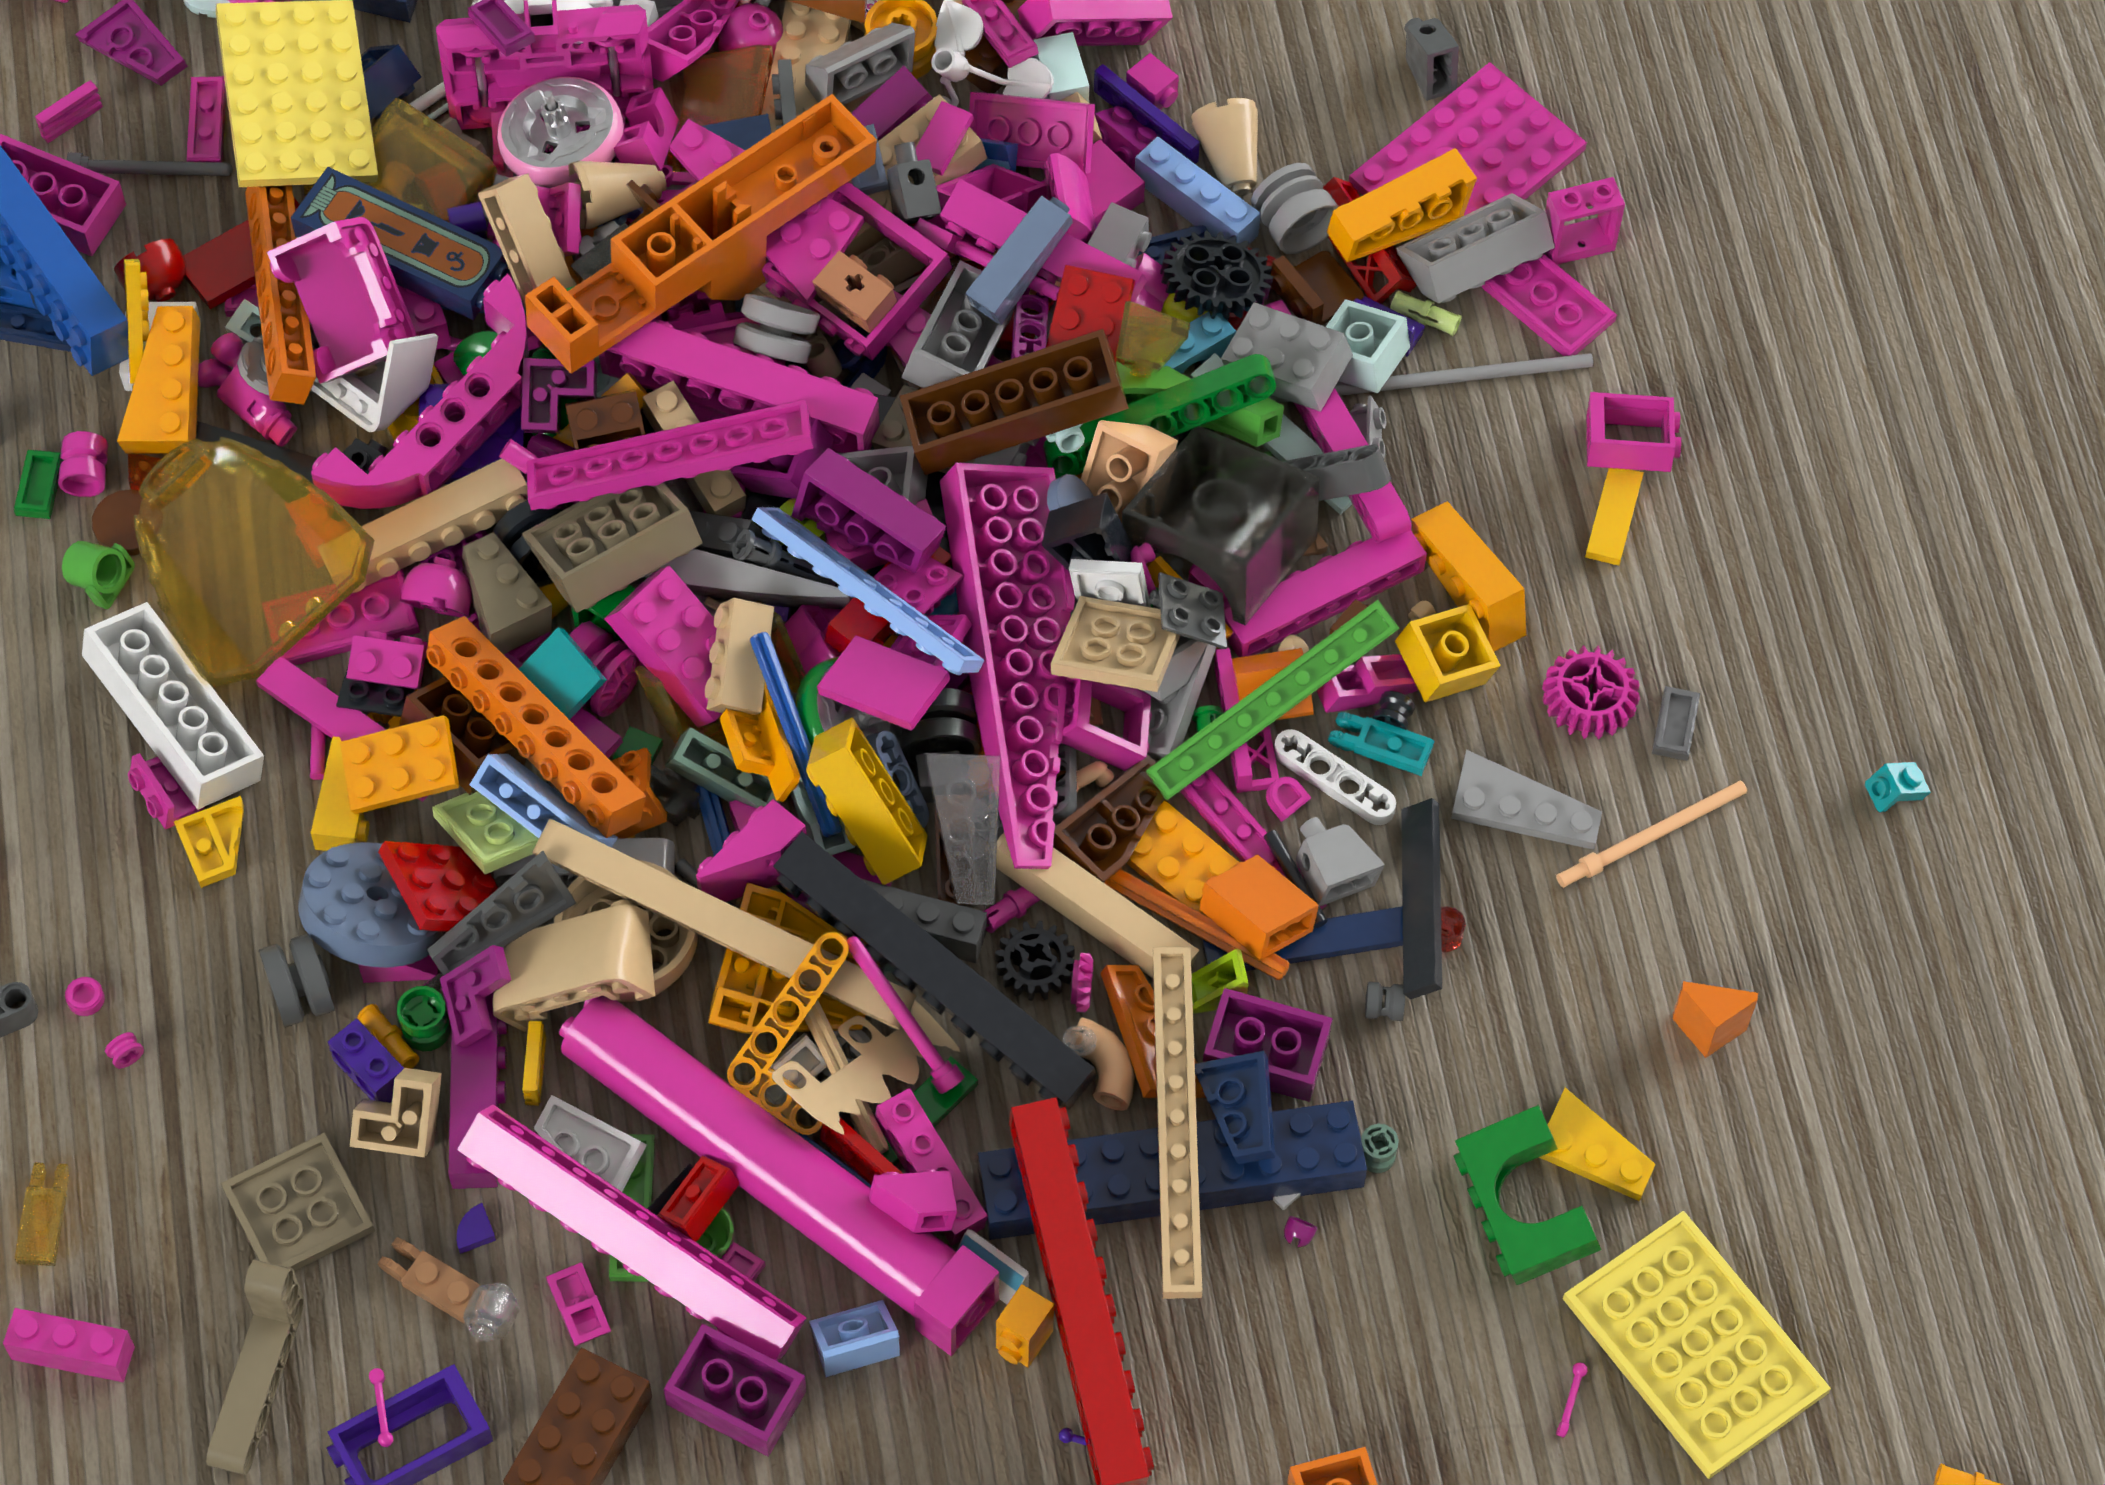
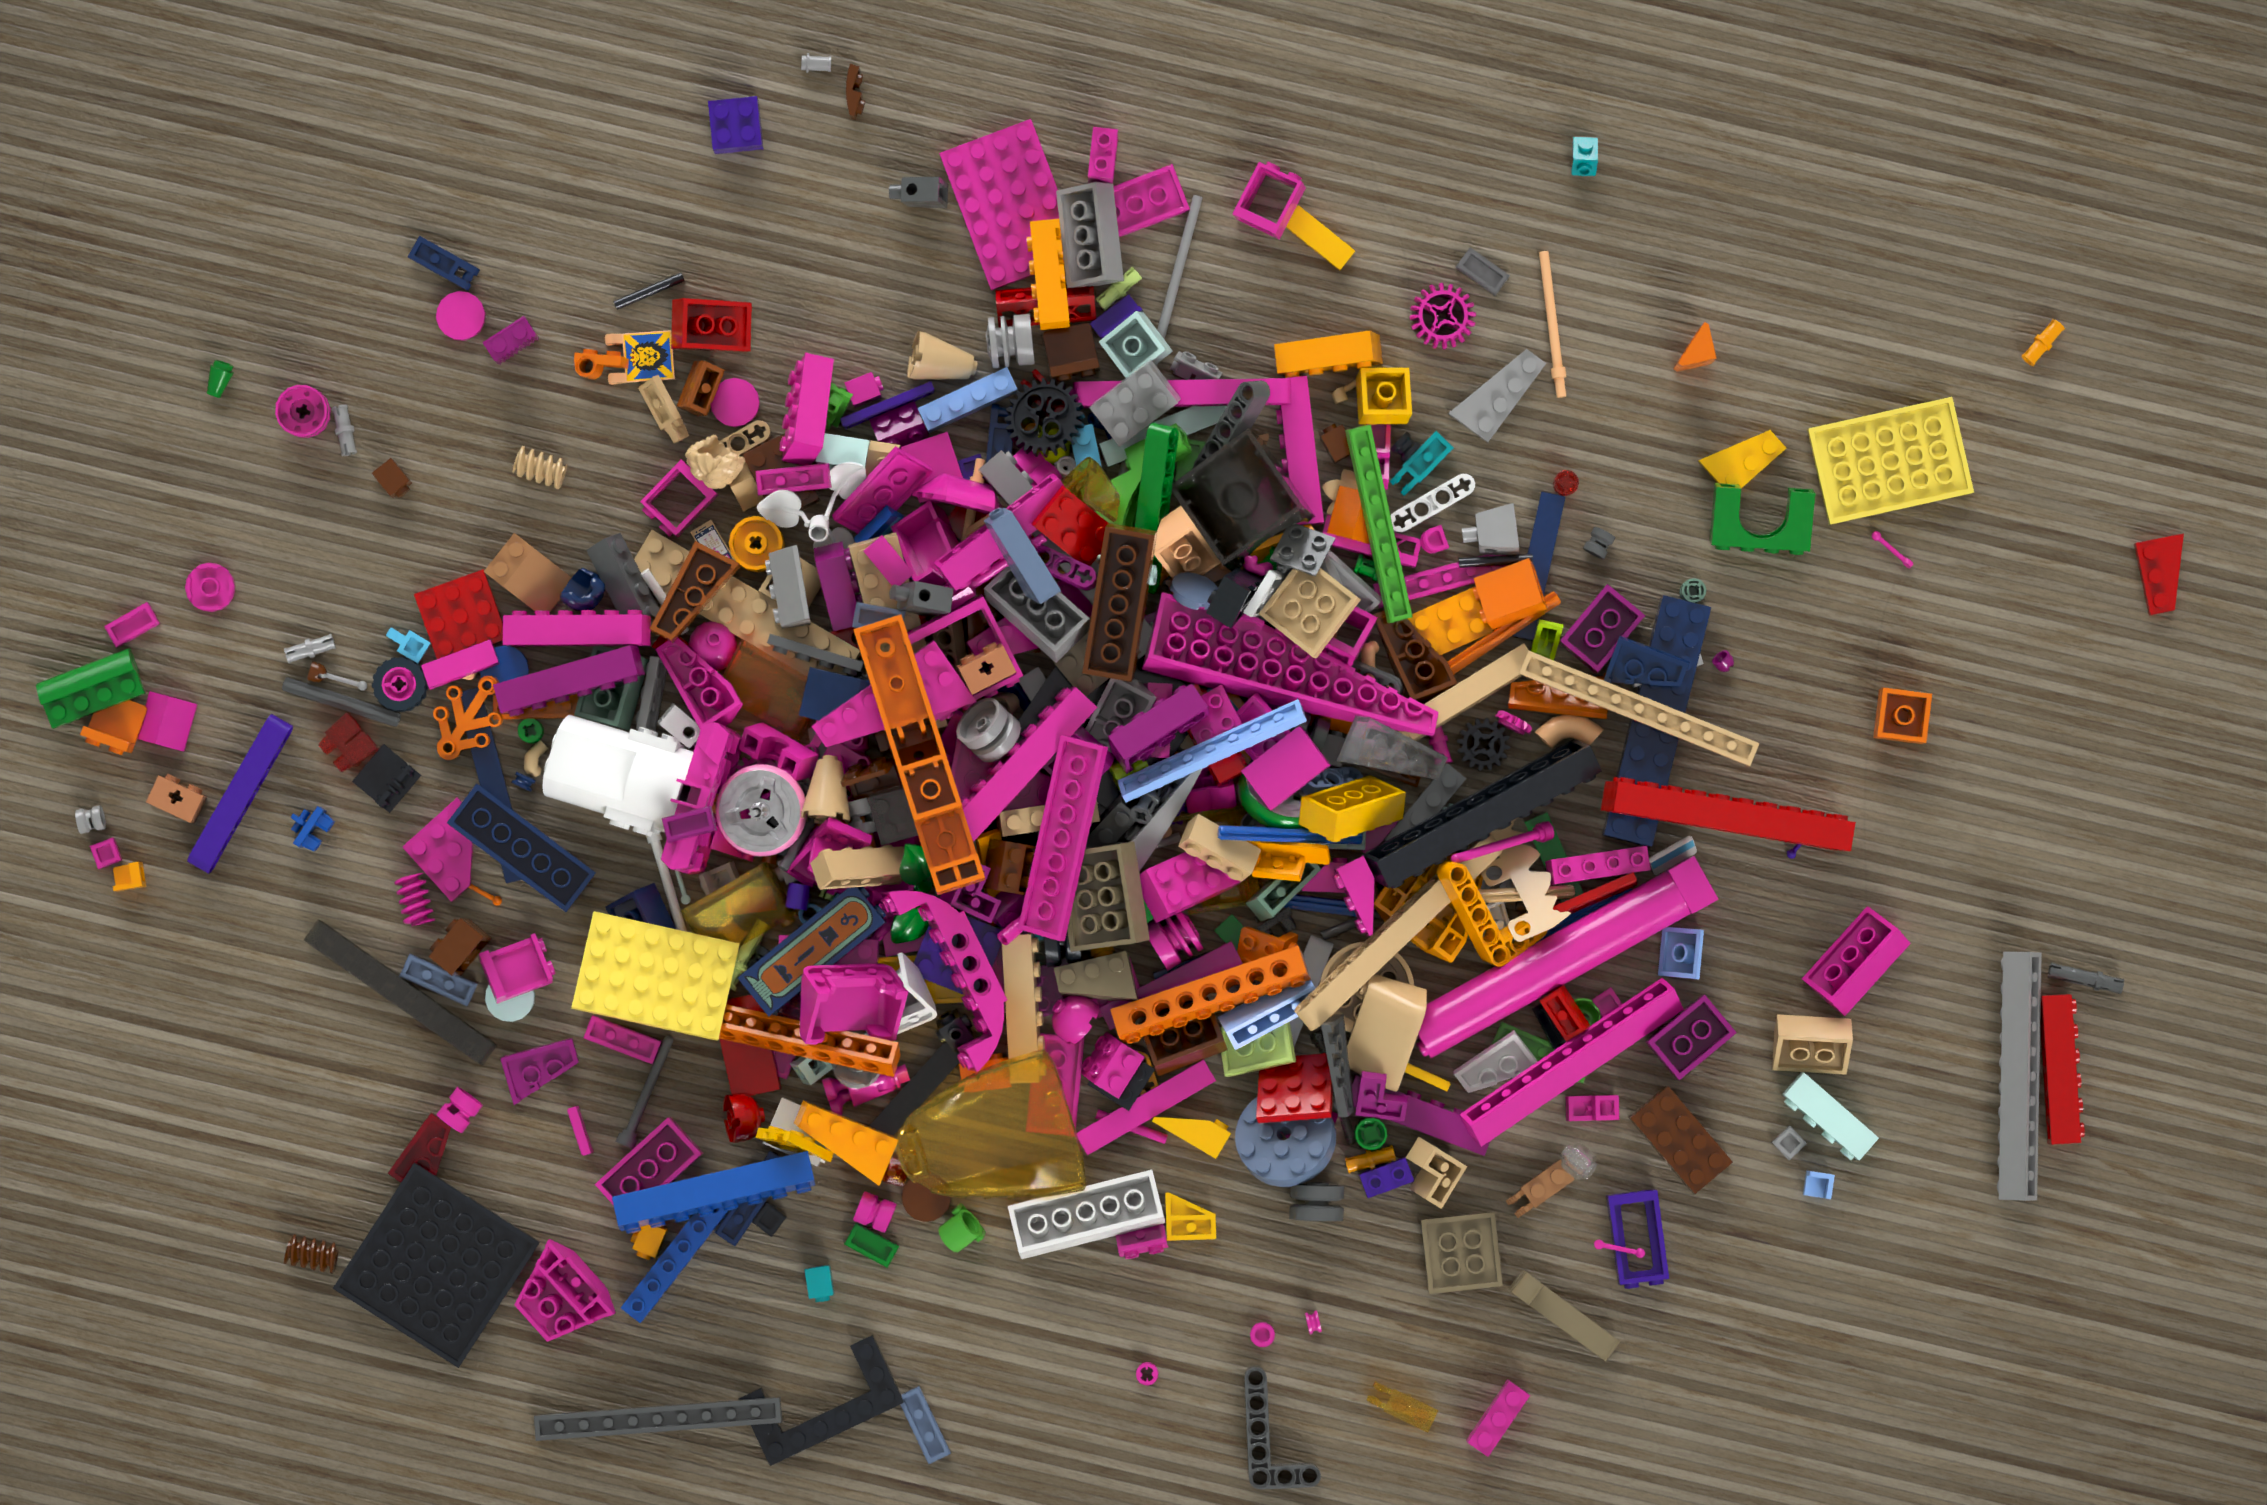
camera: 65 degrees left, 25 degrees up
(30, 358) = (769, 1219): none -> black tile
(399, 764) = (1199, 1087): light orange plate -> none
(474, 1229) = (1518, 1151): dark purple tile -> none
(563, 672) = (1180, 963): teal tile -> none
(916, 1200) = (1633, 885): dark pink slope -> none
(1024, 1326) = (1724, 853): light orange brick -> none
(1088, 1042) = (1558, 746): clear pin -> none
(1118, 53) = (837, 405): none -> bright green hips
(1421, 899) = (1543, 490): black tile -> none

